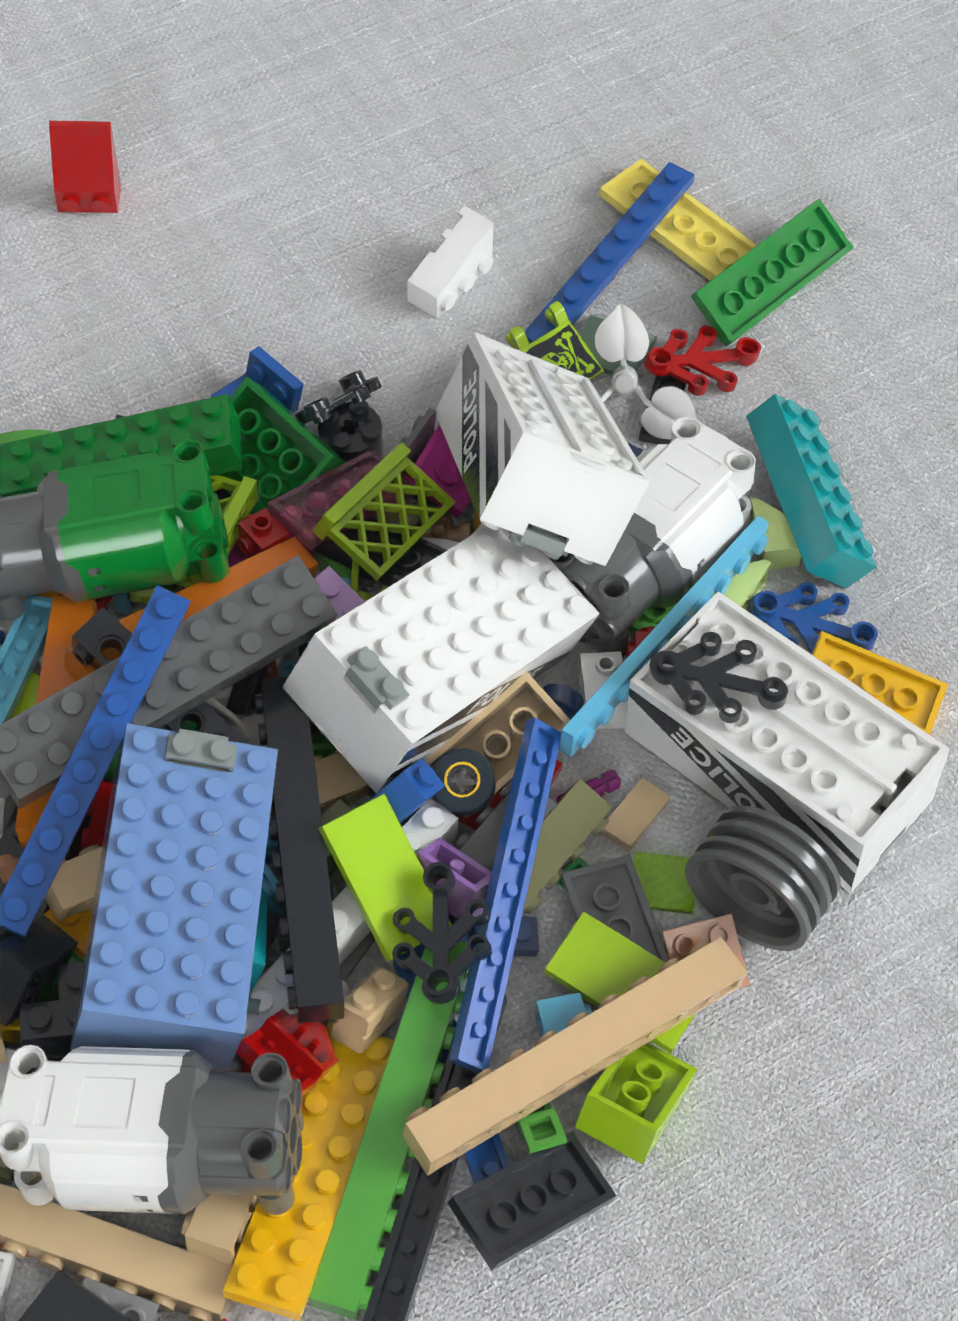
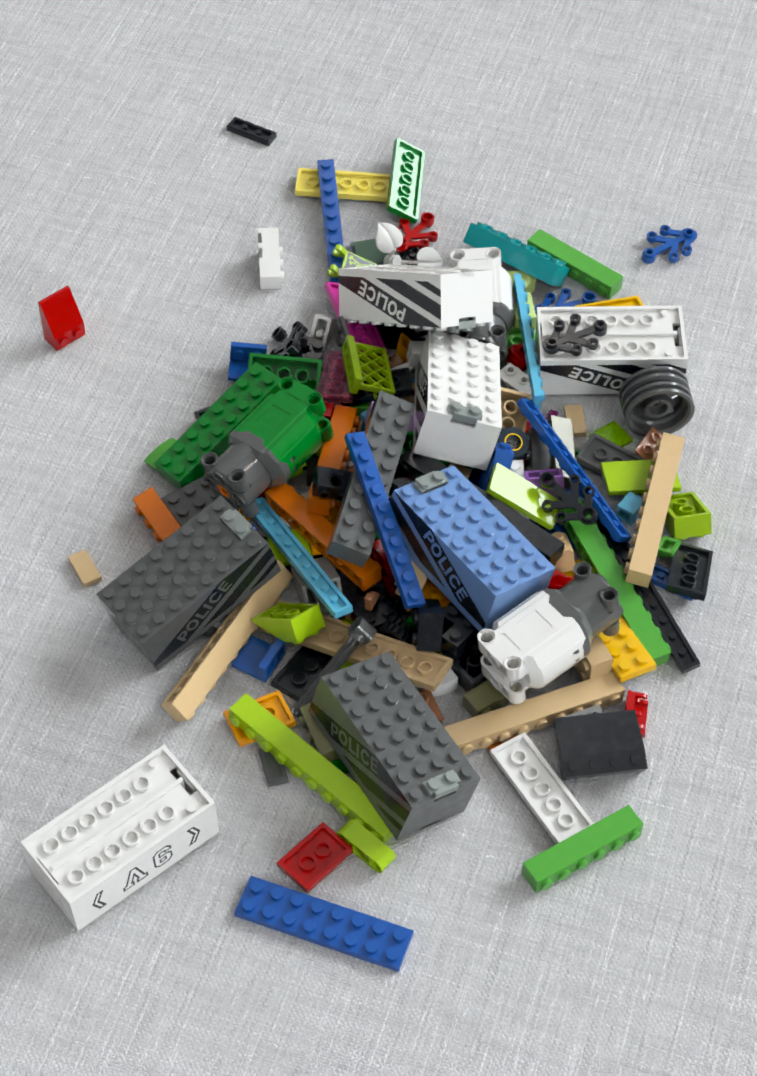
camera: 40 degrees left, 5 degrees down
(402, 415) = (323, 328): none -> white slope
(639, 68) = (251, 131): none -> black tile
(899, 569) = (582, 267): none -> bright green brick

